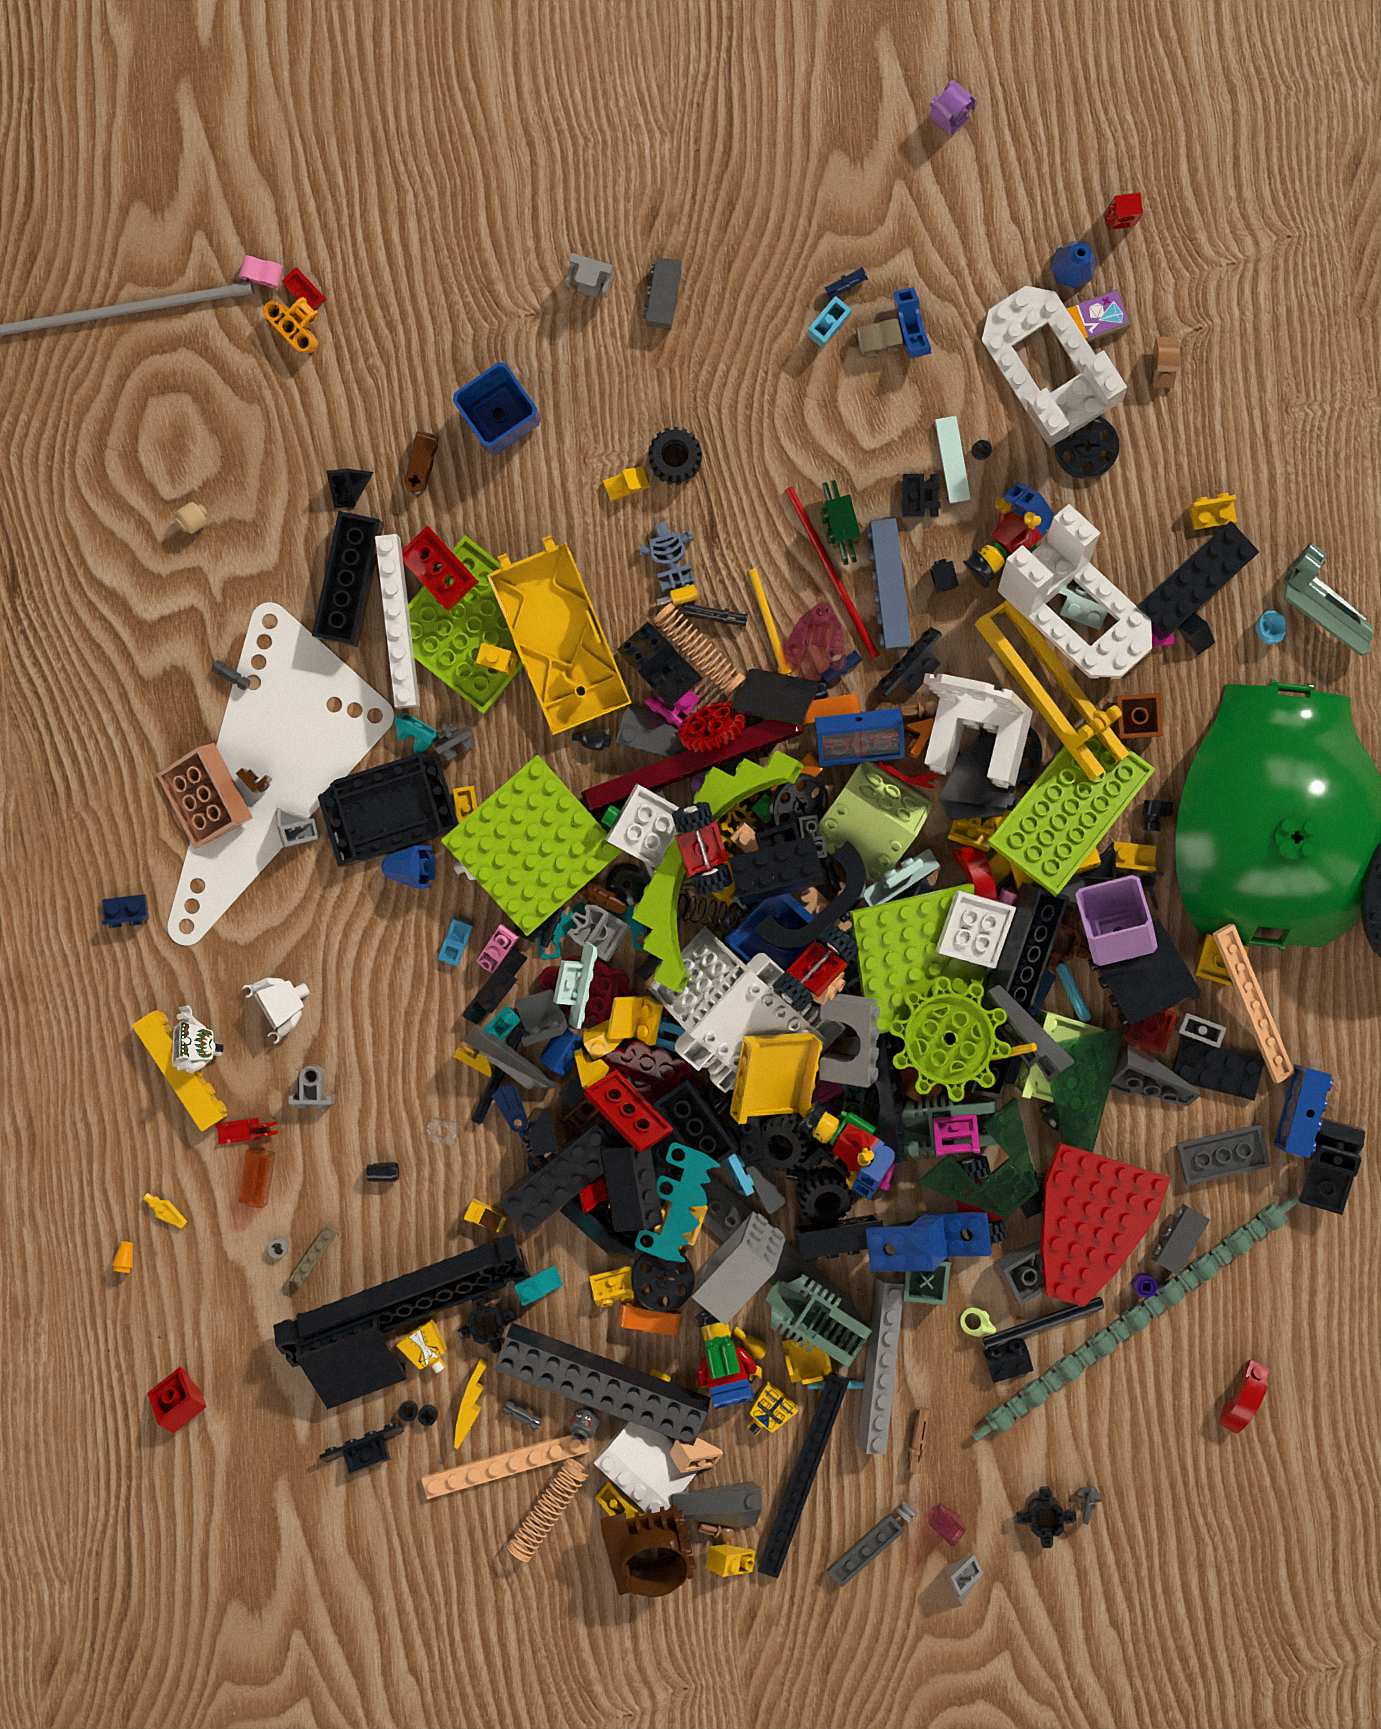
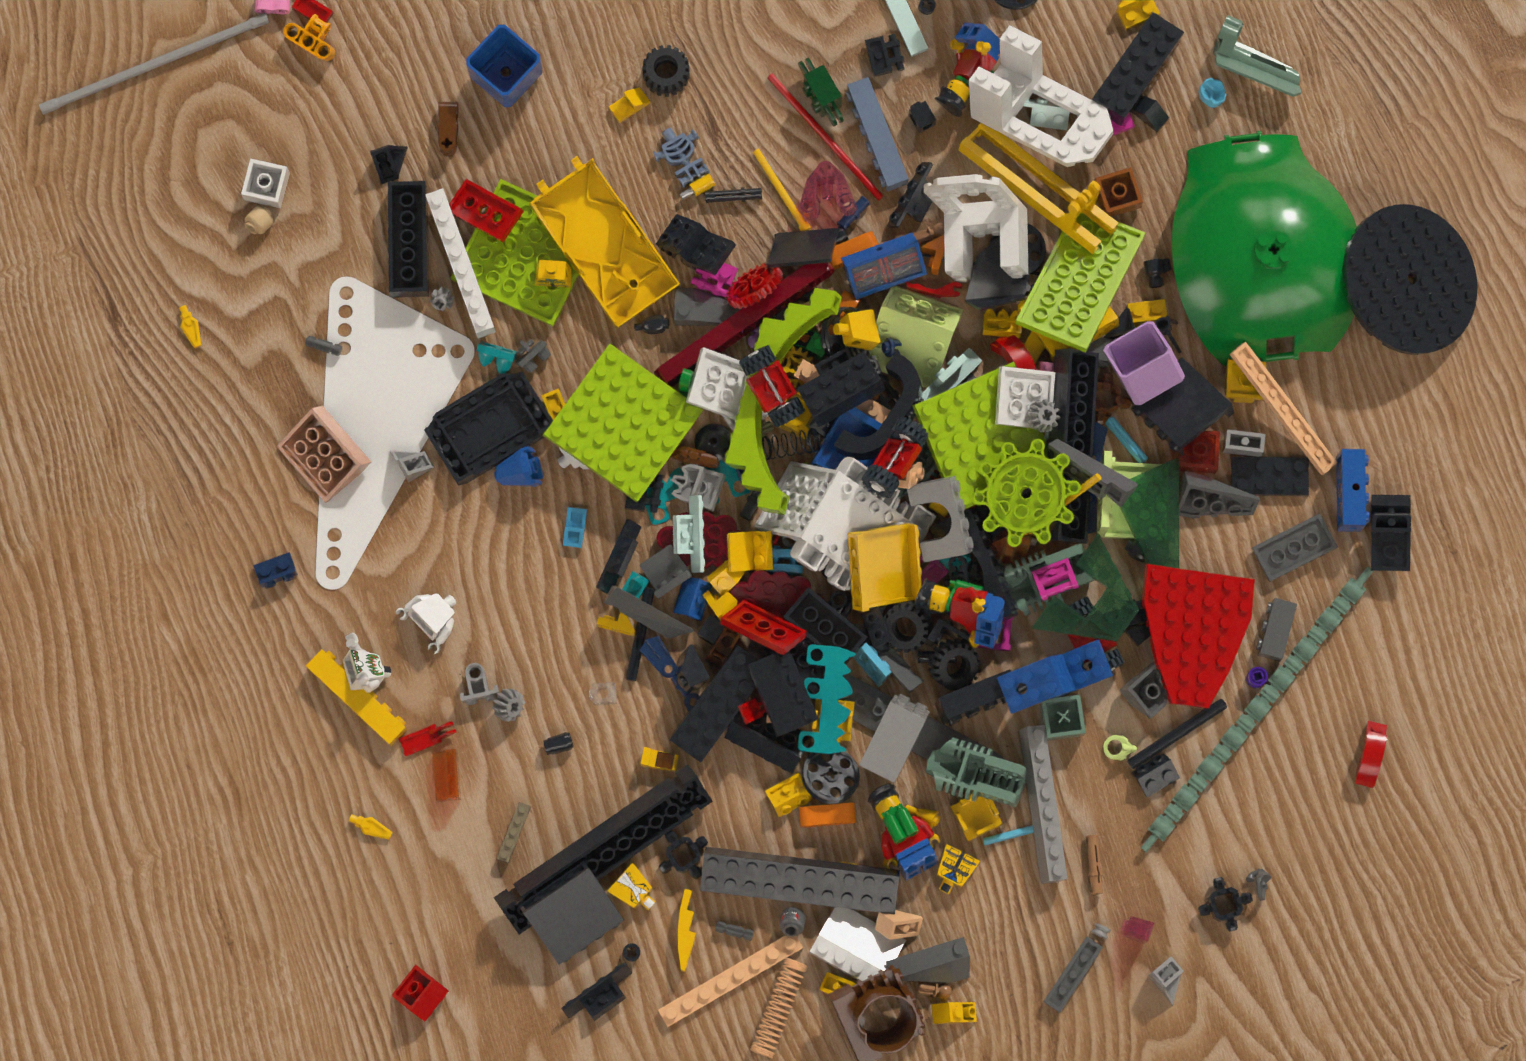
camera: 15 degrees left, 10 degrees down
(92, 618) = (190, 327): none -> yellow piece
(124, 1257) = (343, 877): light orange cone -> none
(206, 478) = (265, 183): none -> white brick
(250, 780) = (361, 429): reddish brown bracket -> none
(271, 1249) = (474, 838): light grey bush -> none
(338, 1120) = (508, 704): none -> light grey gear
(370, 655) = (442, 299): none -> light grey gear
(432, 1410) = (653, 946): black bush -> none
(497, 948) = (614, 520): bright pink slope -> none
(538, 1284) = (721, 809): teal arch -> none
(733, 683) = (688, 205): light nougat piece -> none
(803, 1474) = (999, 920): black plate -> none
(813, 806) = (858, 330): none -> yellow torso
(842, 832) = (889, 345): none -> dark blue plate
(990, 955) = (1039, 409): none -> light grey gear

